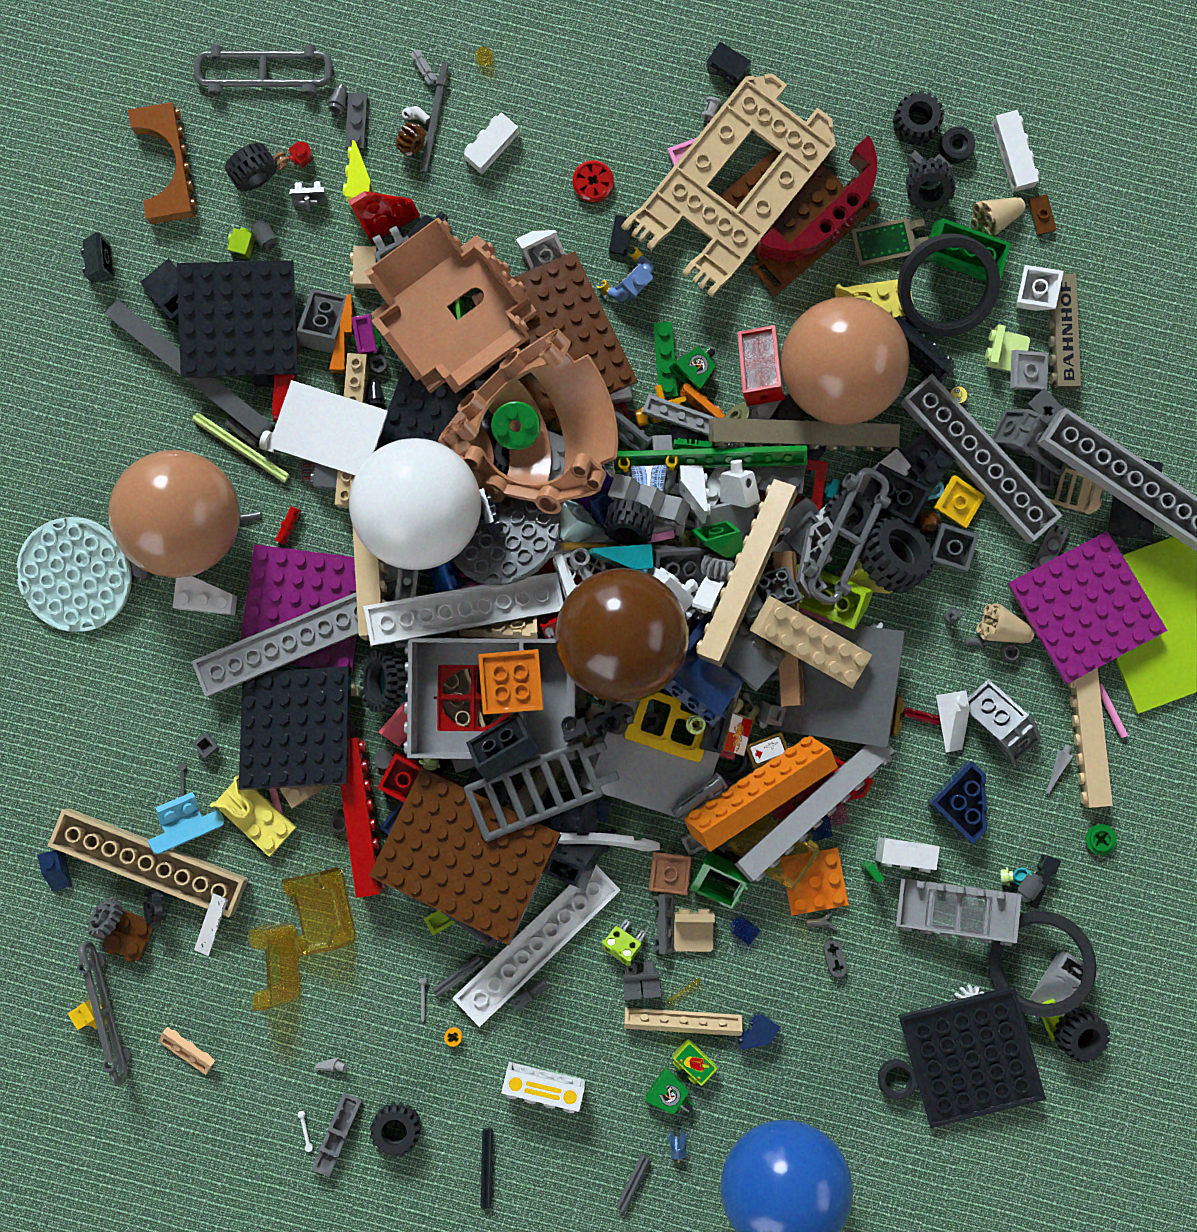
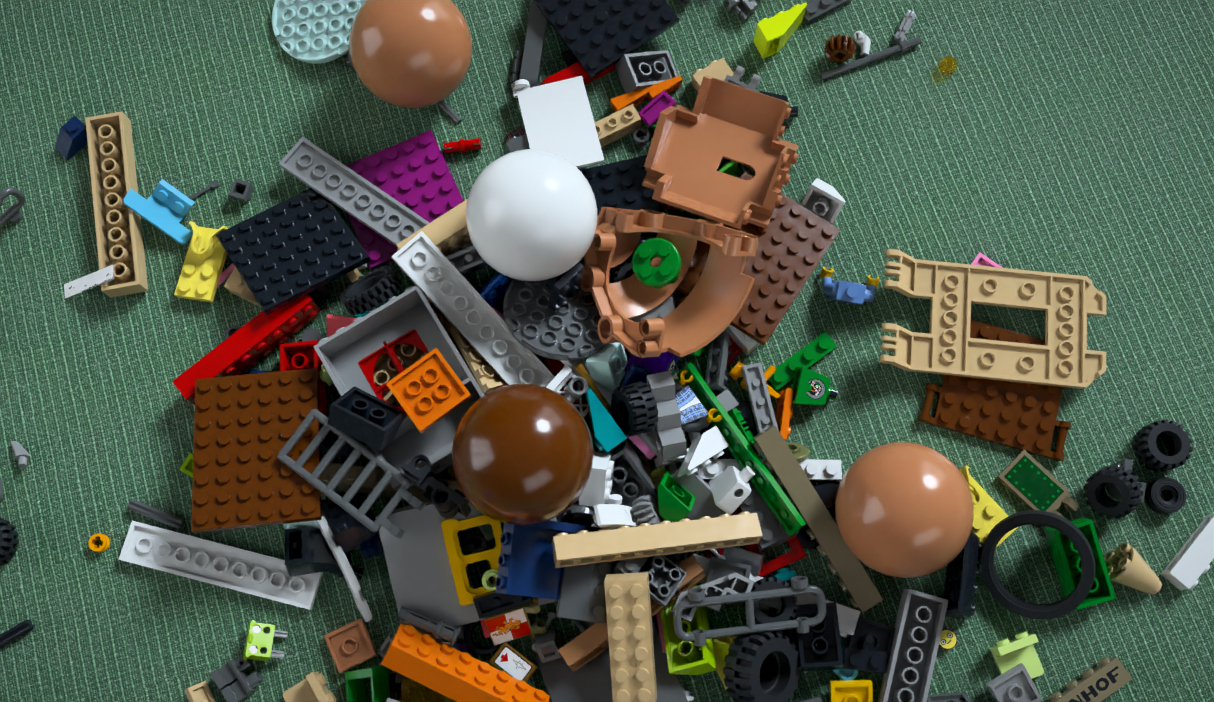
camera: 60 degrees right, 10 degrees down
(104, 918) = (50, 196): dark grey gear -> none
(129, 937) = (47, 226): reddish brown plate -> none
(153, 908) = (74, 233): black plate -> none
(199, 596) = (363, 115): white wedge -> none
(240, 447) = (504, 75): yellowish green axle -> none
(281, 964) = (83, 357): clear yellow windscreen -> none
(322, 911) = (151, 367): clear yellow windscreen -> none
(375, 395) = (613, 148): black cone -> none
(382, 212) = (765, 60): red plate -> none
(423, 981) = (135, 486): light grey piece -> none
(491, 142) = (881, 112): white brick -> none
(530, 993) = (172, 586): dark grey axle -> none
(543, 1087) = (90, 649): white brick -> none
(595, 192) = (917, 204): red wheel -> none
(620, 238) = (876, 261): black panel -> none
(665, 923) = (299, 670): dark grey plate -> none
(711, 108) = (1041, 266): light grey bush -> none
(728, 64) = (1086, 257): black brick -> none
(761, 365) = (849, 440): brick -> none
(833, 219) = (1018, 423): dark red slope -> none
(927, 522) = (813, 683): reddish brown rock -> none
(1039, 288) = (1094, 651): white slope -> none
(1042, 215) = (1161, 613): reddish brown plate -> none

